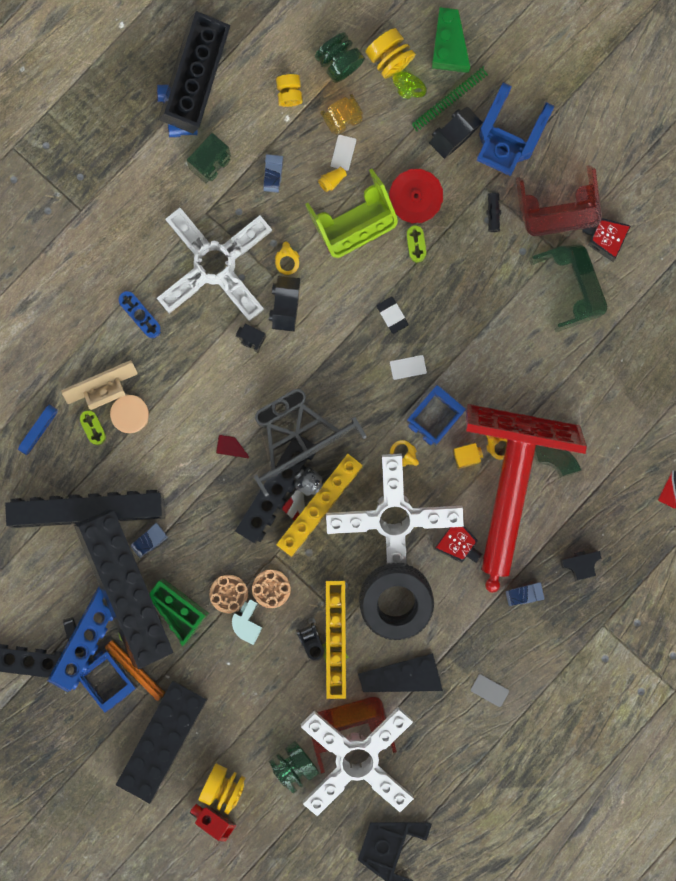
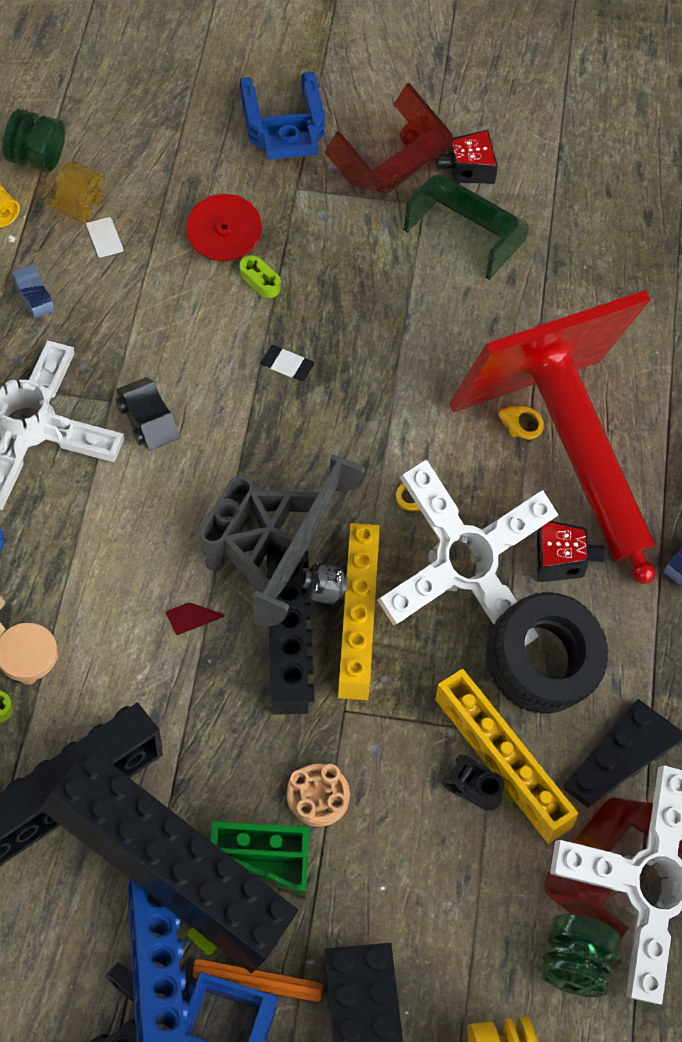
camera: 40 degrees left, 25 degrees down
(149, 540) = (165, 780): leg -> none
(243, 627) = (371, 820): light aqua brick -> none
(251, 337) = (129, 473): black brick -> none
(271, 588) = (370, 752): light nougat tile -> none
(286, 250) = (109, 359): yellow piece -> none
(294, 505) = (325, 631): white sticker -> none
(332, 179) = (110, 264): yellow cone -> none
(359, 224) = (182, 288): lime windscreen -> none
(387, 51) = (91, 109): yellow wheel -> none
(407, 87) = (134, 134): clear neon green piece -> none
(408, 367) = (348, 405): white sticker -> none
(448, 401) = (438, 408): blue window -> none
(449, 99) = (191, 126): green piece -> none
(450, 45) = (153, 75): green wedge -> none
(455, 132) = (222, 148): black brick -> none
(467, 455) = (495, 451): yellow brick -> none
(493, 212) = (334, 212): black pin -> none
(559, 459) = (611, 391): clear green brick -> none

